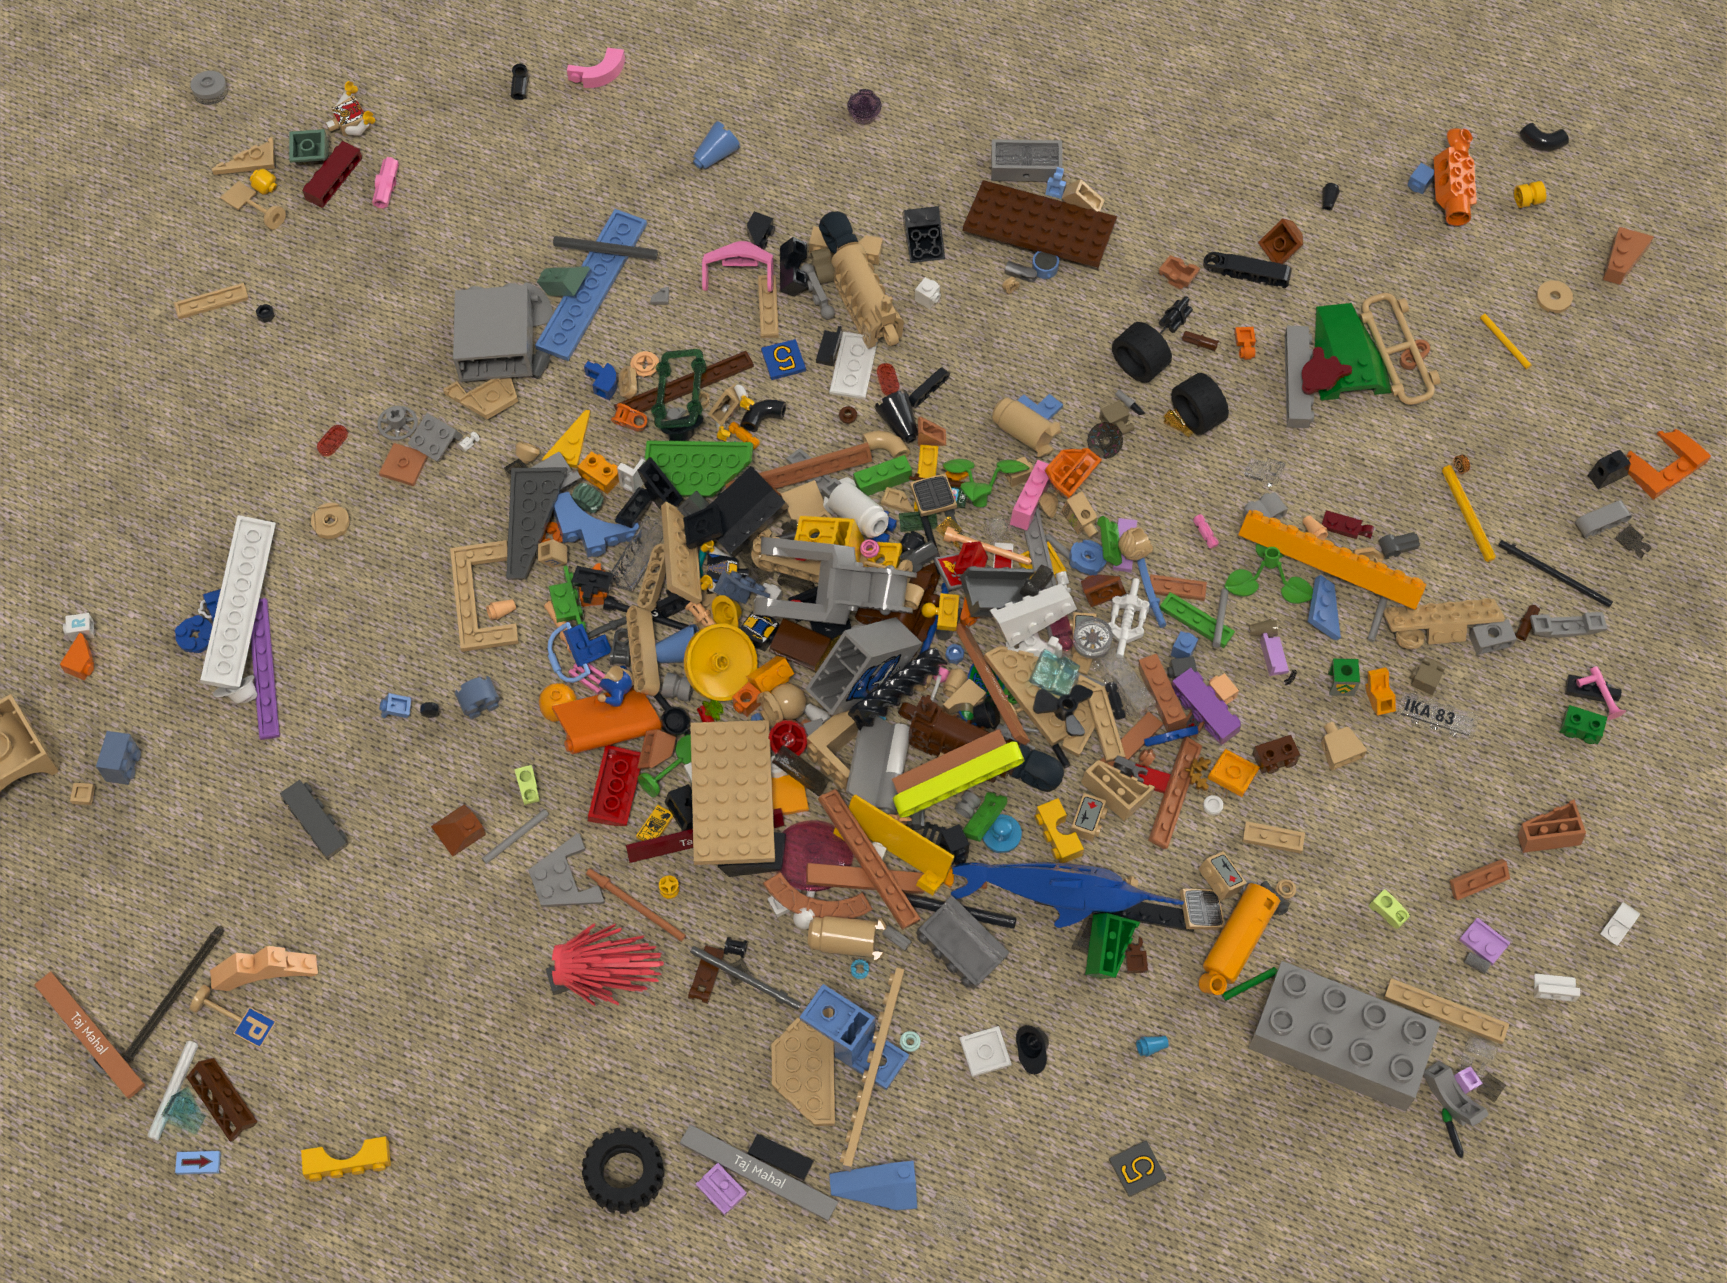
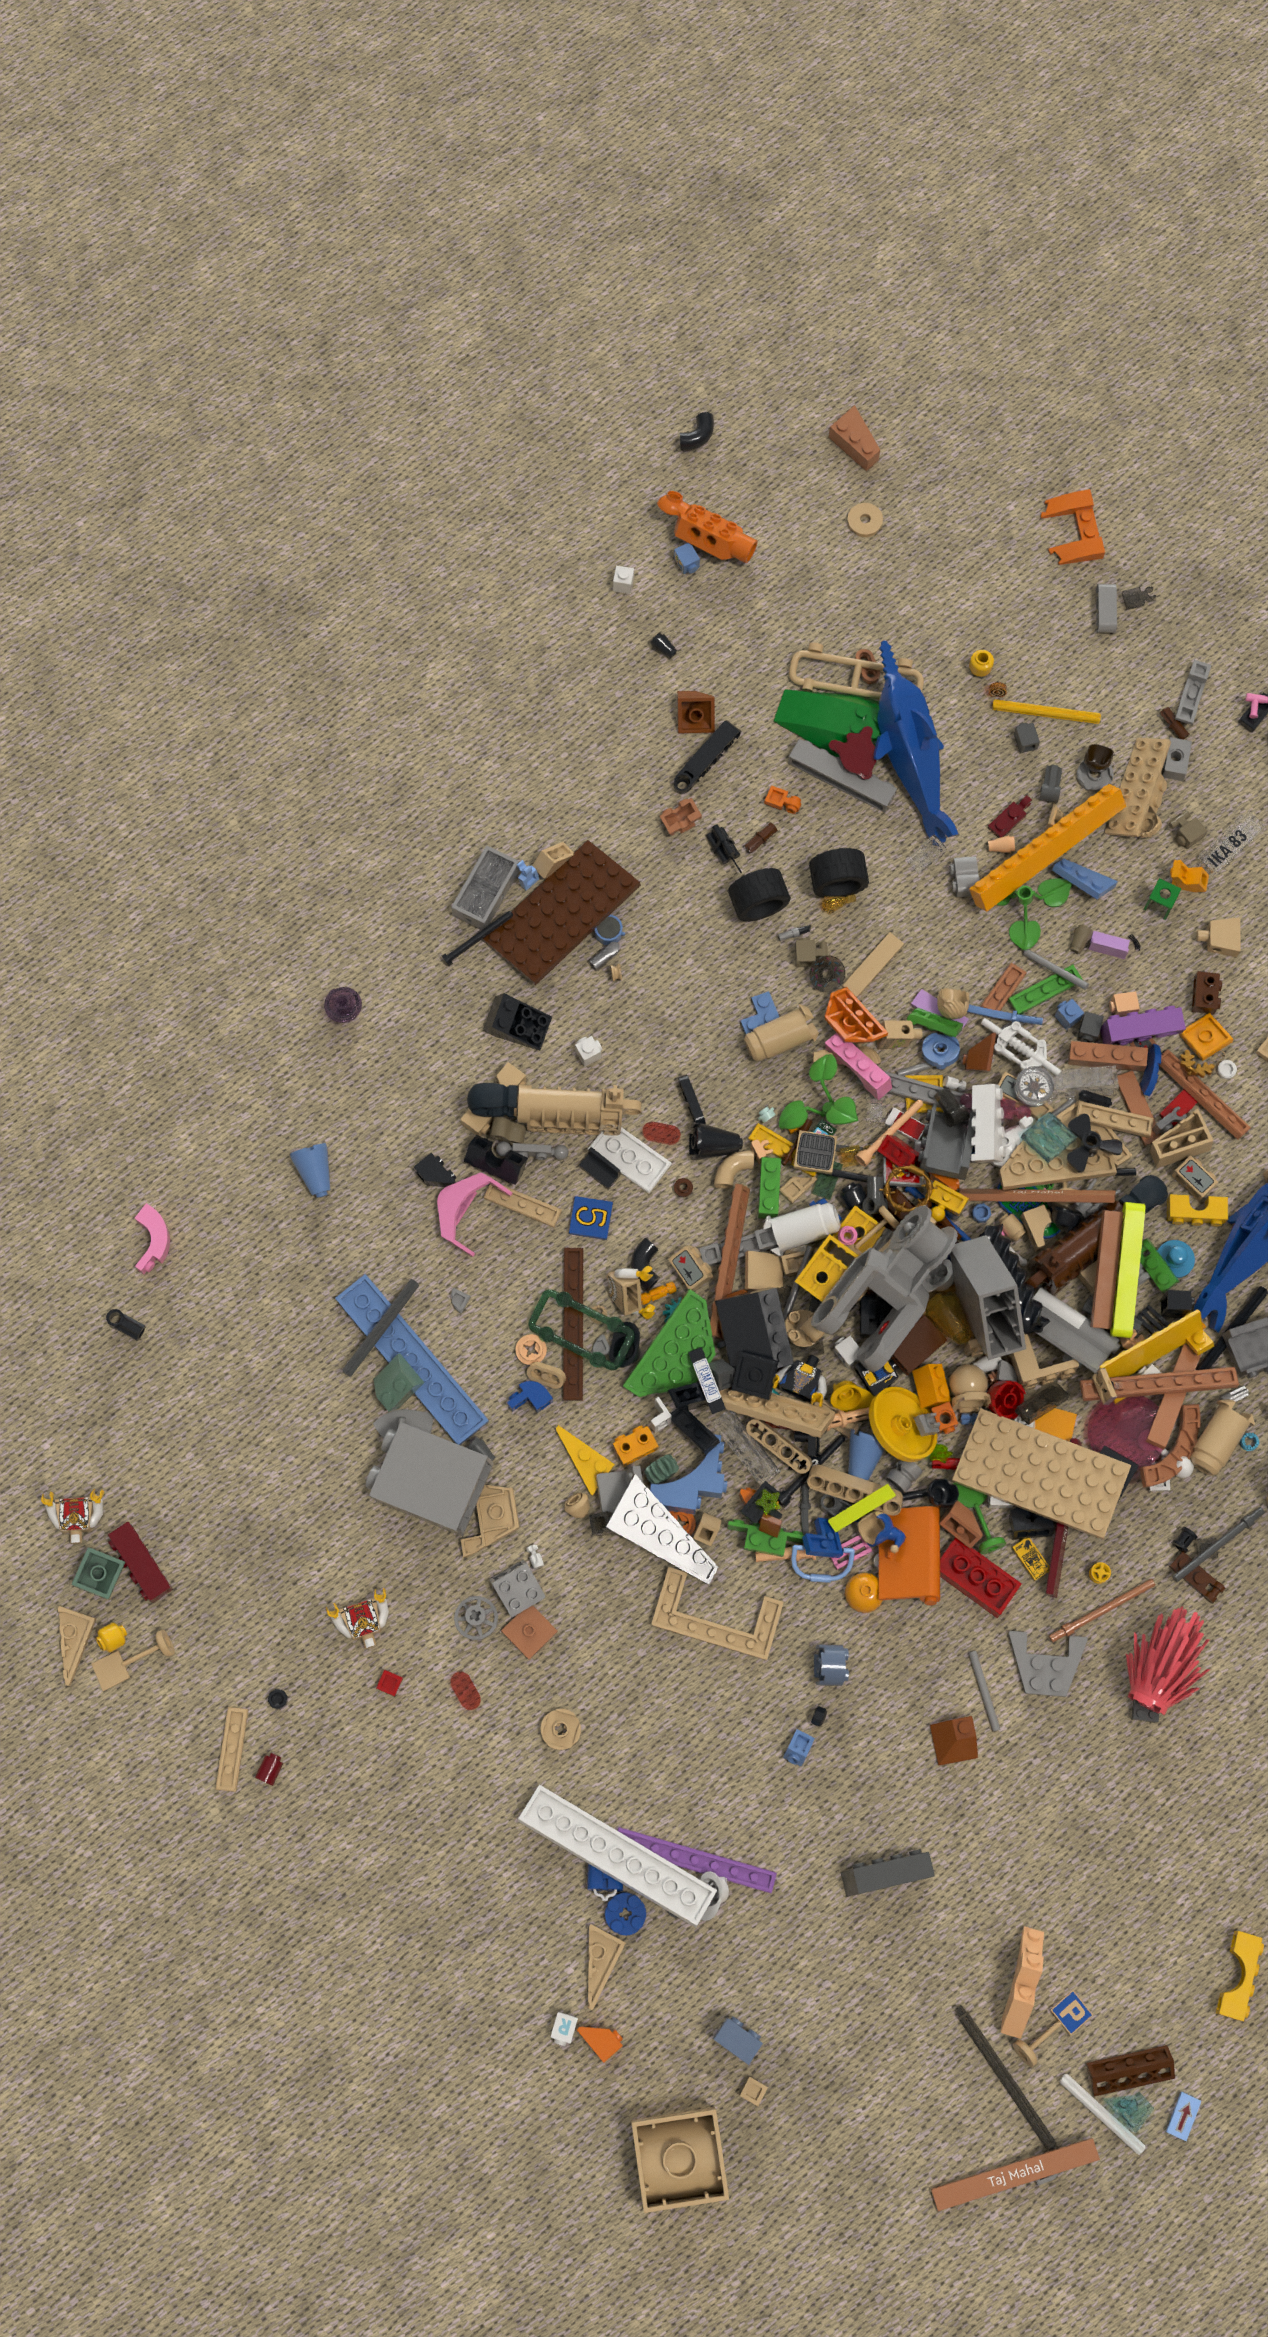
camera: 65 degrees left, 10 degrees up
(150, 632) = (603, 1955): none -> tan wing
(205, 330) = (269, 1769): none -> dark red brick
(313, 383) = (389, 1683): none -> red plate
(355, 339) = (362, 1619): none -> torso
(385, 182) = (179, 1512): bright pink piece -> none
(500, 608) = (739, 1604): light nougat cone -> none
(527, 784) = (939, 1657): yellowish green leg -> none
(576, 594) = (770, 1525): none -> dark orange tile
(594, 585) = (767, 1507): none -> clear neon green plate
(627, 660) = (861, 1508): none -> neon yellow sticker
(628, 417) = (588, 1392): orange piece -> none
(680, 493) = (707, 1380): none -> sticker
(731, 683) = (927, 1424): none -> light grey tile
(738, 588) = (832, 1366): sand blue bracket -> none
(777, 447) = (691, 1267): none -> brick
(839, 807) = (1105, 1386): none -> tan piece
(914, 453) = (759, 1151): none -> light nougat tile
(930, 433) = (743, 1123): nougat slope -> none
(949, 448) = (766, 1114): none -> light aqua plate
(956, 570) = (913, 1169): none -> pearl gold piece
(969, 170) = (476, 938): none -> black bar
(1136, 475) = (873, 964): none -> tan tile
(1146, 757) = (1159, 1101): nougat plate -> none
(1205, 531) = (960, 936): bright pink axle -> none
(1360, 407) = (912, 745): none -> blue animal
(1369, 141) = (623, 579): none -> white brick
(1377, 619) = (1114, 843): light grey bar -> none
(1430, 505) = (1026, 737): none -> dark grey brick
(1441, 570) = (1090, 783): none -> light grey tile
(1447, 567) = (1098, 758): none -> dark brown hair
(1477, 438) = (981, 663): none -> yellow head
(1506, 342) = (890, 585): yellow bar -> none
(1532, 193) = (752, 478): yellow wheel -> none
(1555, 573) = (1098, 696): black bar -> none
(1613, 466) = (1064, 570): black torso -> none

